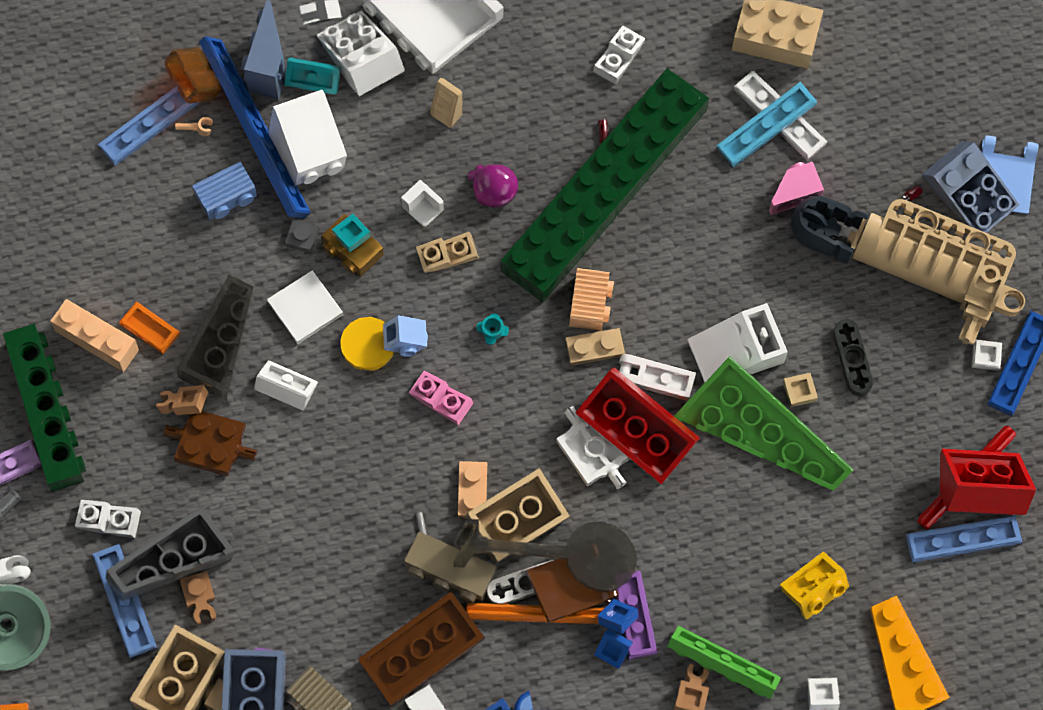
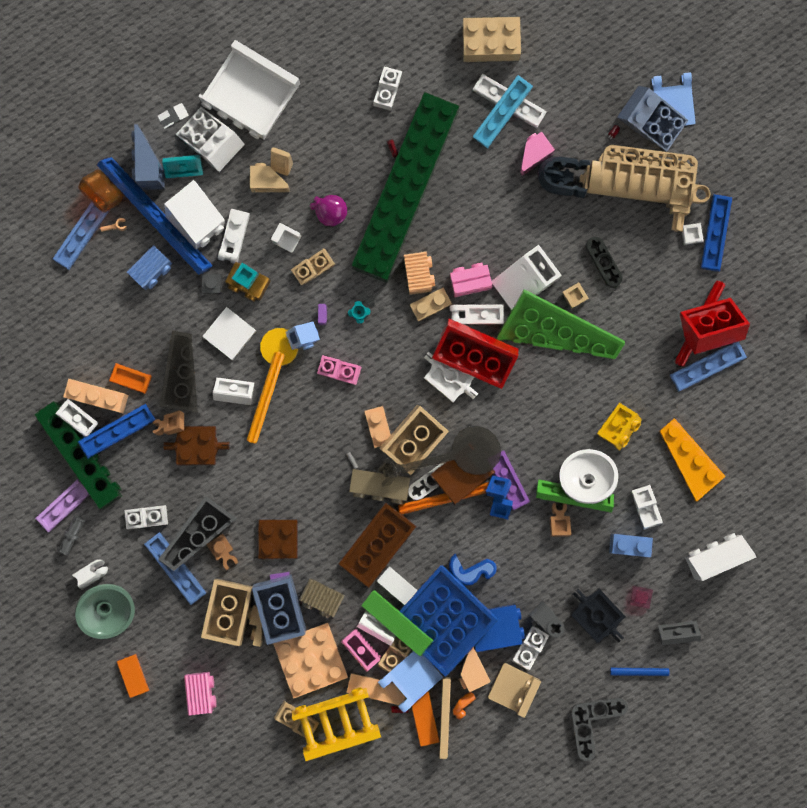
camera: 10 degrees left, 15 degrees up
(59, 355) = (76, 418): none -> white slope
(106, 389) = (116, 431): none -> blue tile
(282, 602) = (278, 539): none -> reddish brown plate
(327, 404) = (265, 397): none -> light orange axle
(352, 182) = (234, 235): none -> white plate
(419, 123) = (265, 179): none -> tan slope
(441, 316) = (322, 314): none -> medium lavender tile
(660, 328) = (470, 280): none -> bright pink brick
(754, 627) = (588, 466): none -> white dish

